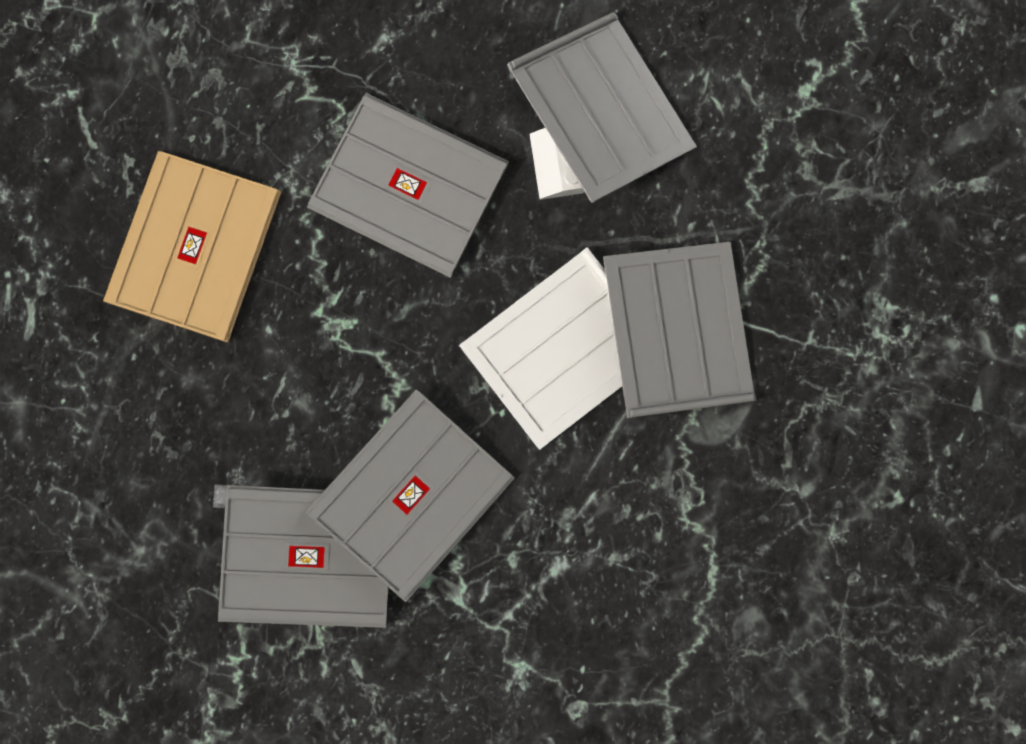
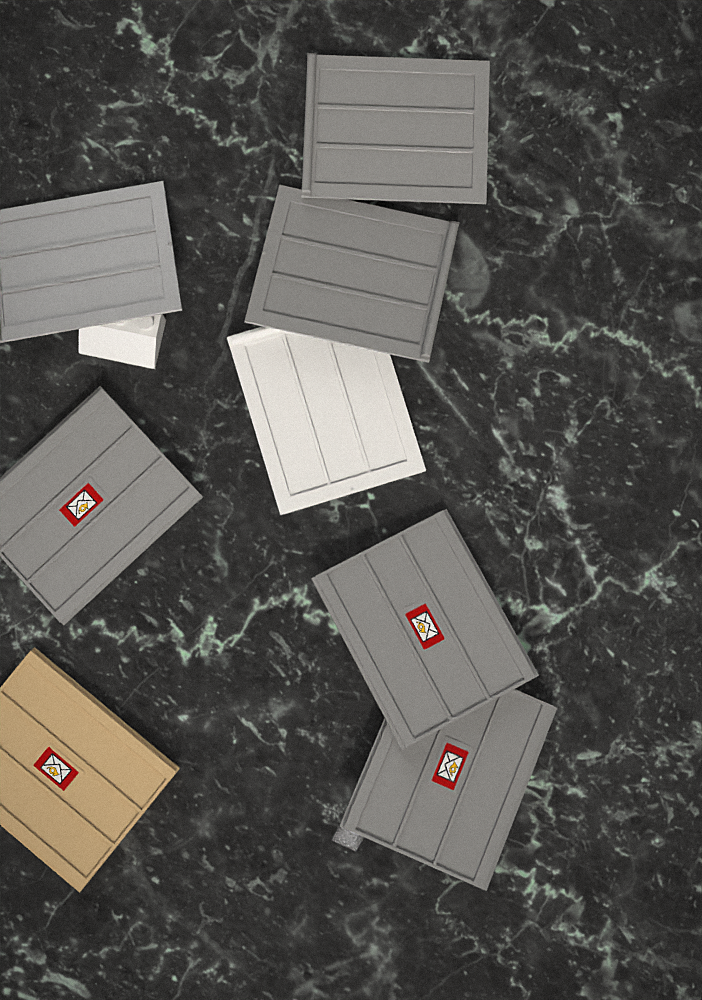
camera: 70 degrees left, 0 degrees up
(814, 319) = (396, 129): none -> light grey door

